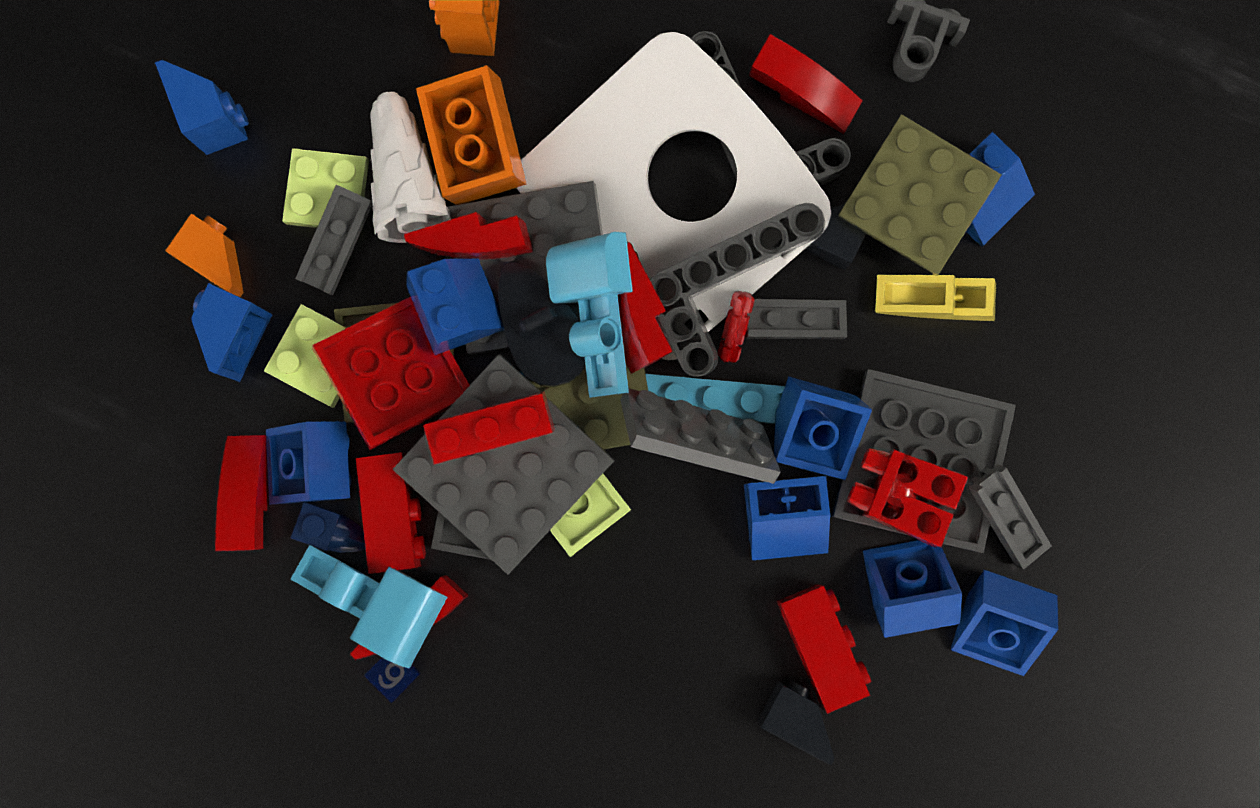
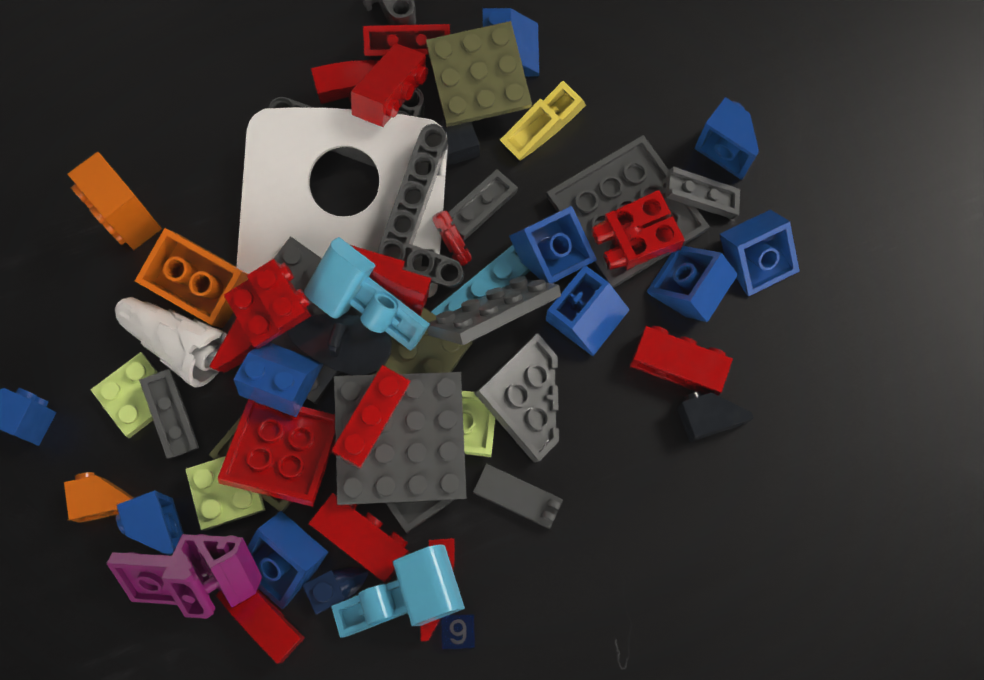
camera: 45 degrees left, 10 degrees down
(228, 397) = (190, 574): none -> magenta piece
(505, 230) = (268, 303): none -> red plate
(558, 614) = (518, 496): none -> dark grey hinge
(653, 537) = (525, 397): none -> dark grey plate
(823, 125) = (389, 85): none -> red brick
(887, 86) = (381, 38): none -> red brick
(1092, 493) = (729, 138): none -> blue slope

